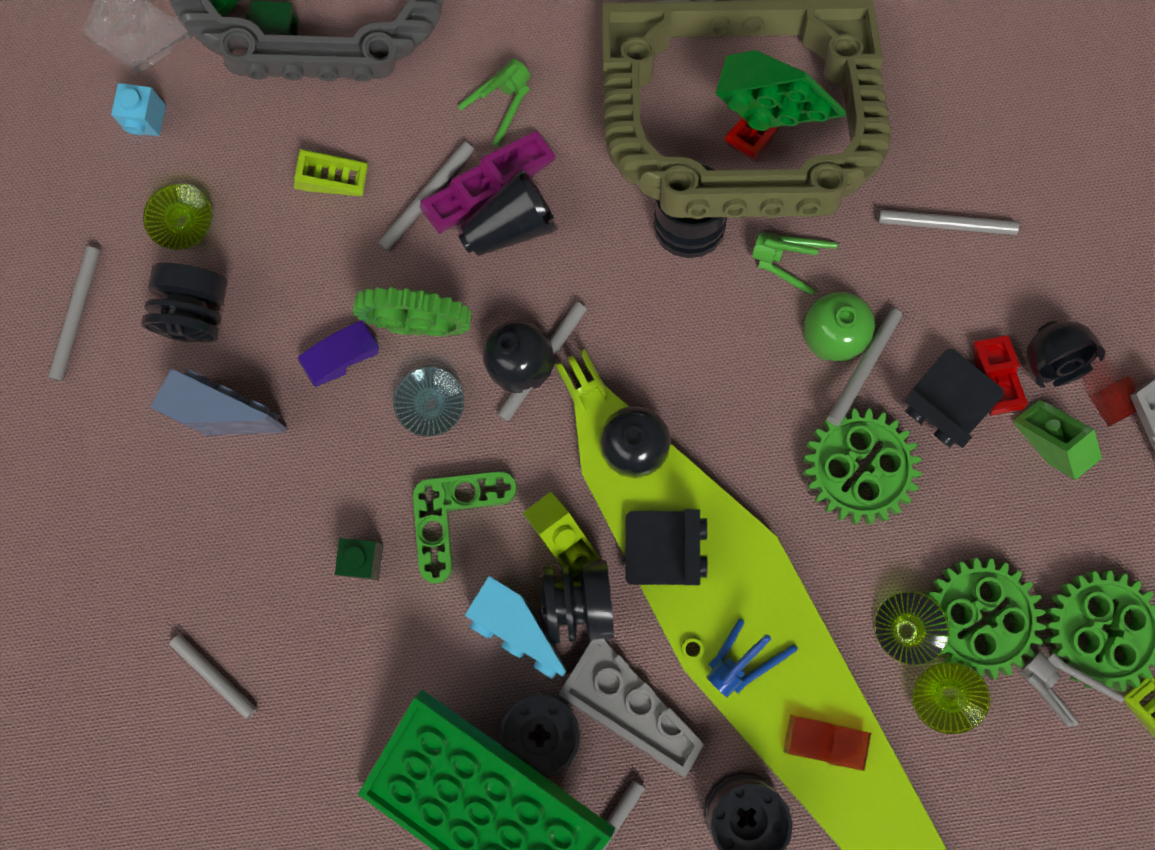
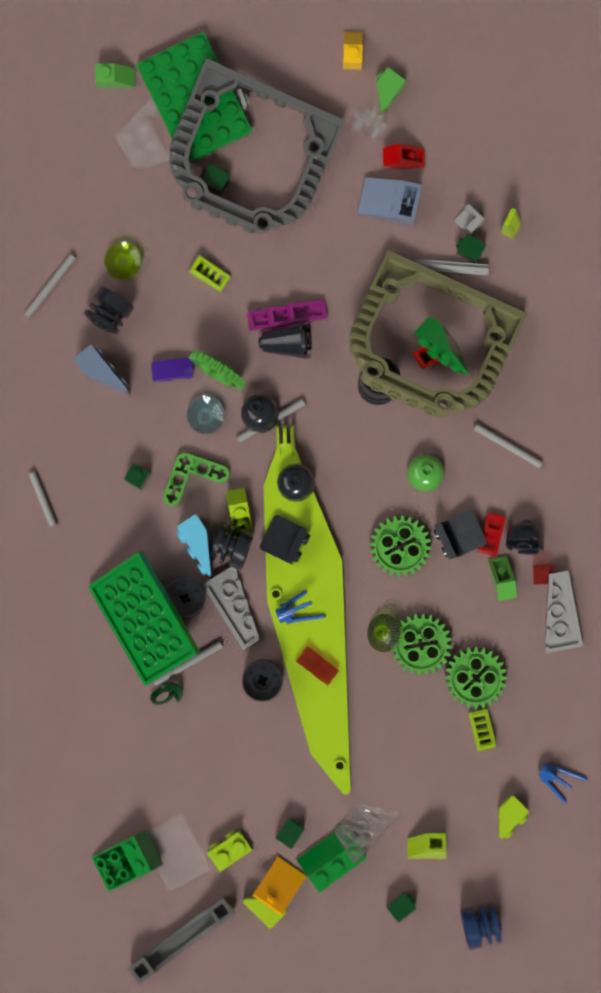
camera: 20 degrees right, 5 degrees up
(138, 109) = (126, 195): medium azure brick -> none
(430, 189) = (252, 307): light grey bar -> none
(510, 80) = (323, 265): bright green plant -> none
(771, 247) = (411, 417): bright green plant -> none
(864, 367) = (427, 498): light grey bar -> none
(954, 713) = (379, 679): clear neon green dish -> none
(1042, 675) = (433, 683): light grey plant -> none

